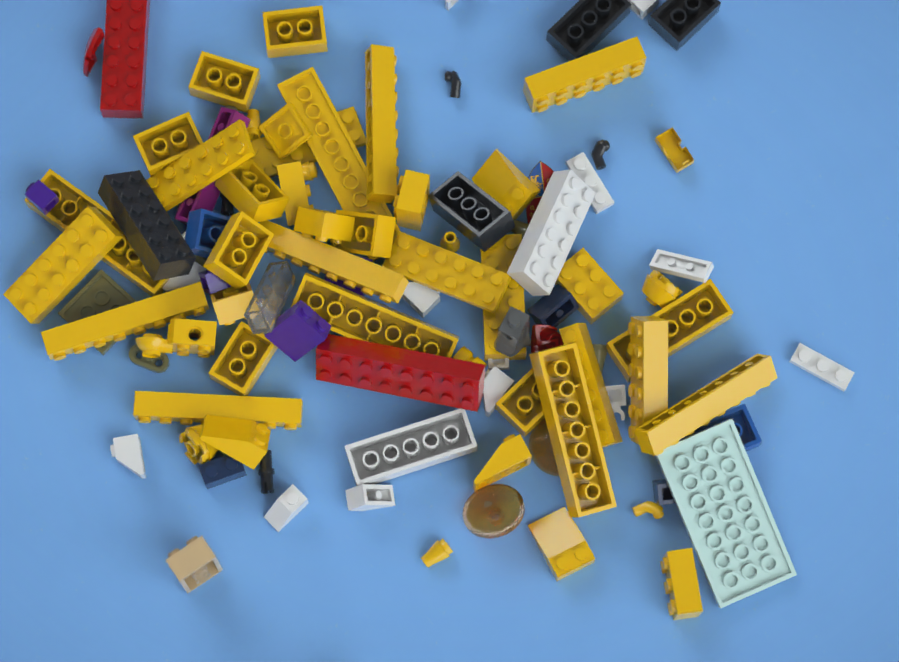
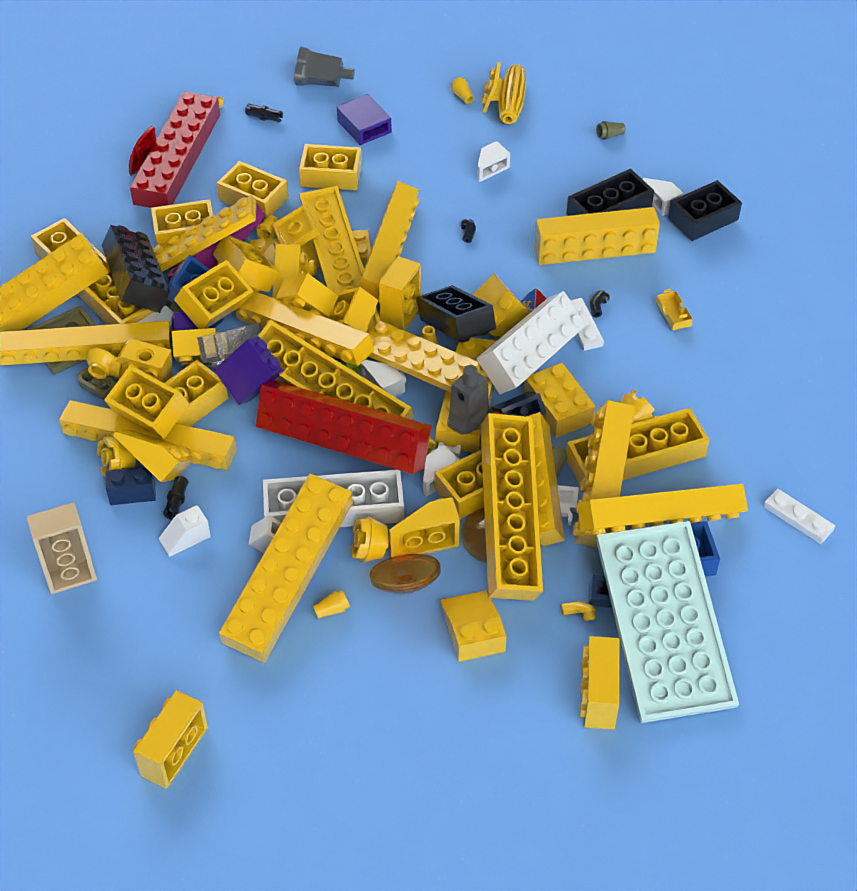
camera: 15 degrees right, 25 degrees down
(41, 197) = (45, 231): dark purple brick -> none
(129, 453) = (43, 455): white slope -> none
(214, 389) = (147, 402): none -> yellow brick
(393, 533) = (286, 568): none -> yellow brick
(454, 483) = (370, 539): none -> yellow cone
(681, 266) = (666, 397): white plate -> none

